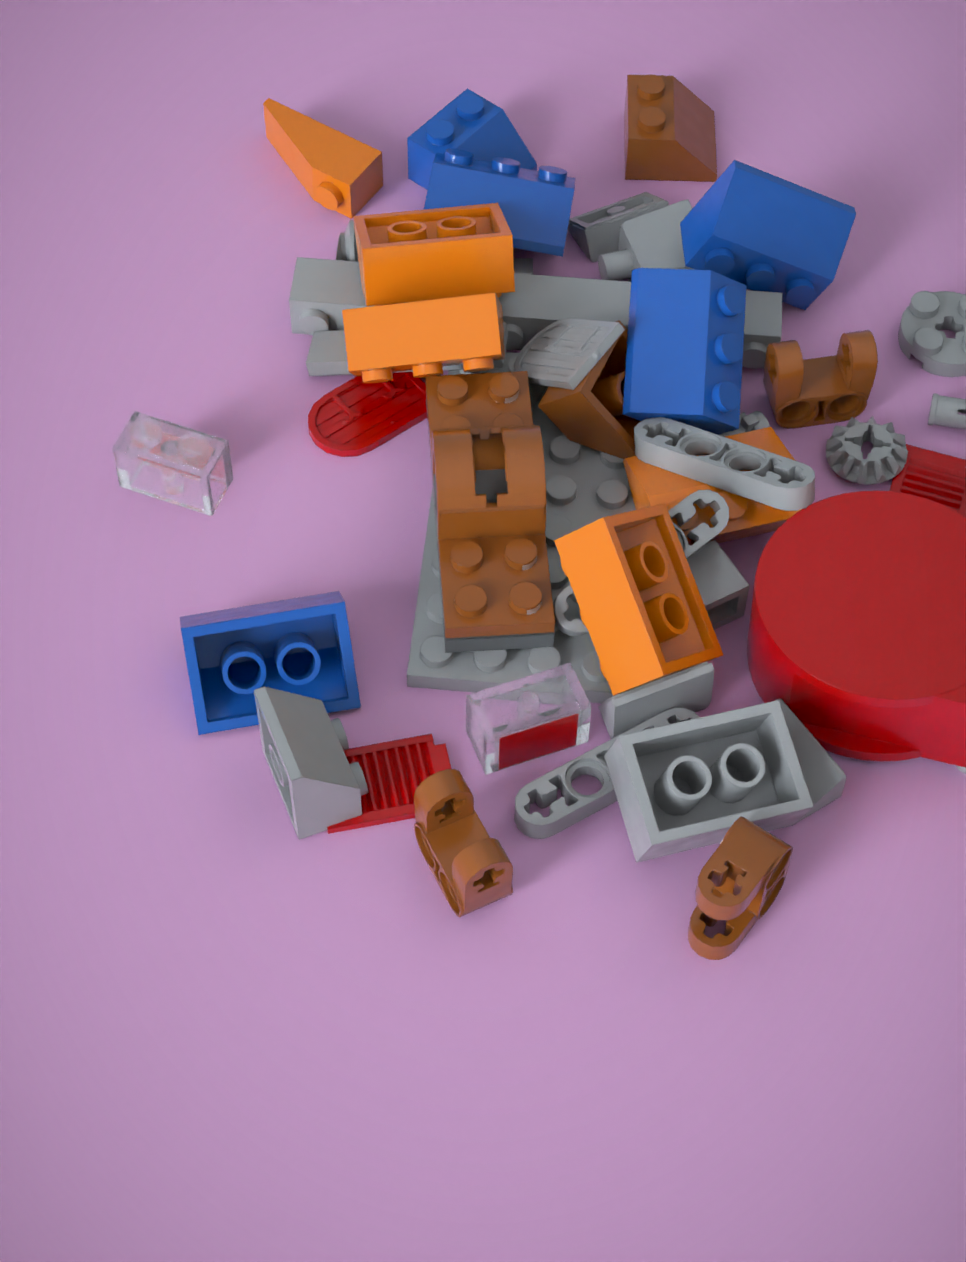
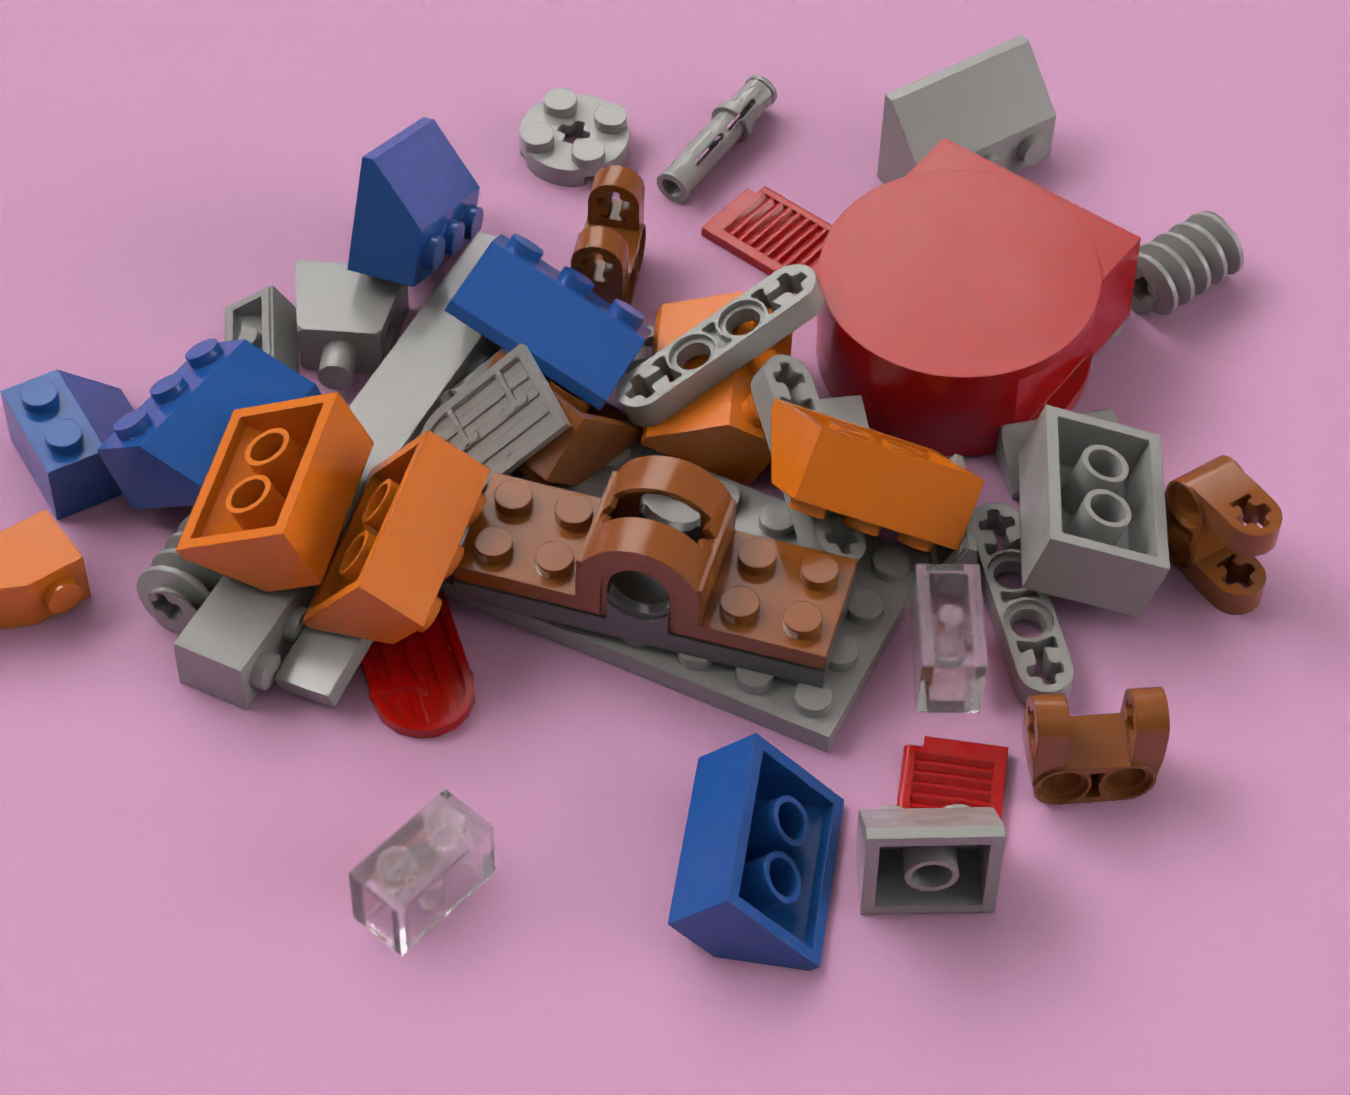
camera: 70 degrees left, 5 degrees down
(667, 132) = (150, 259): dark orange slope -> none
(883, 462) = (705, 274): light grey gear -> none

